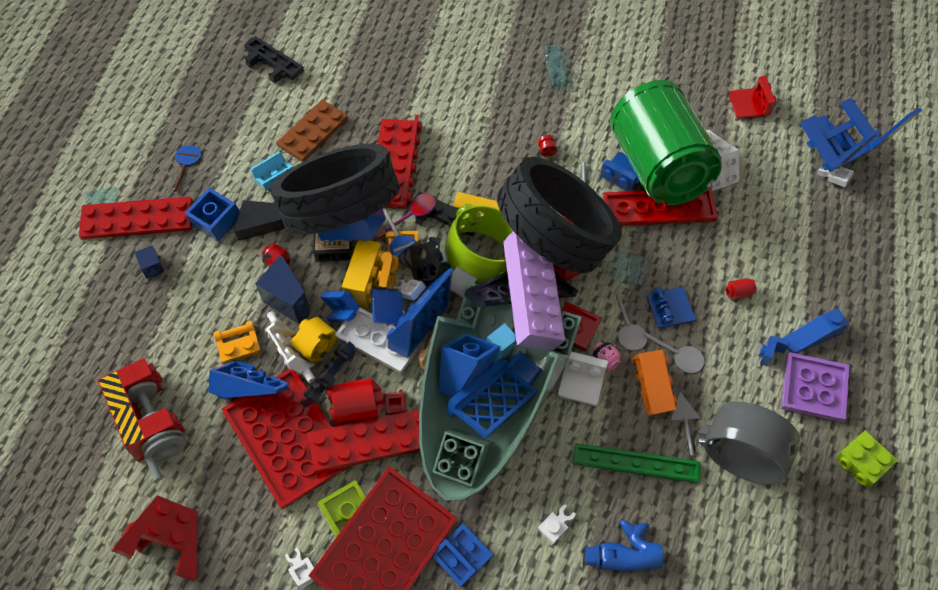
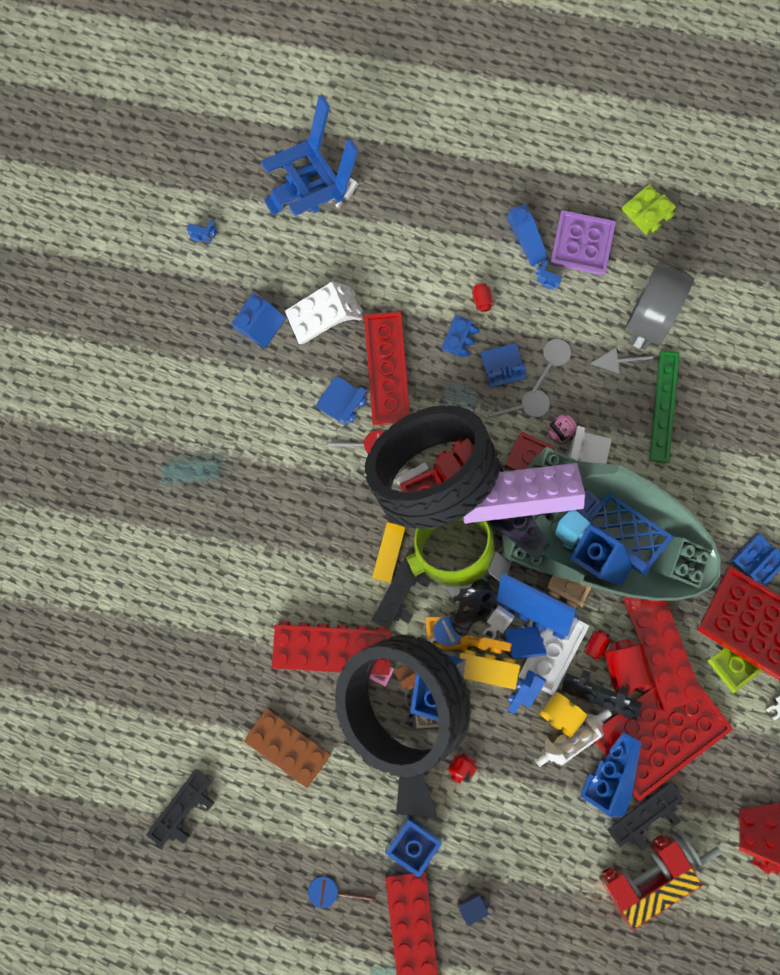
camera: 90 degrees left, 20 degrees up
(214, 429) = (658, 805): none -> black hinge
(238, 348) = (567, 793): light orange plate -> none
(269, 170) = (350, 786): medium azure bracket -> none
(283, 292) = (511, 751): dark blue slope -> none
(382, 377) = (597, 644): none -> red brick
(395, 402) = (617, 629): red slope -> none
(420, 206) = (396, 614): piece -> none
(547, 145) = (310, 481): red wheel -> none
(555, 526) = (728, 479): white plate -> none
(622, 558) = (754, 421): blue piece -> none
(655, 382) = (588, 385): orange wedge -> none
(665, 142) = (331, 354): green container -> none
(698, 269) = (458, 336): none -> blue plate
(703, 102) = (258, 320): none -> blue slope
(753, 101) = (246, 261): red bracket -> none
(777, 74) = (199, 233): none -> blue bracket

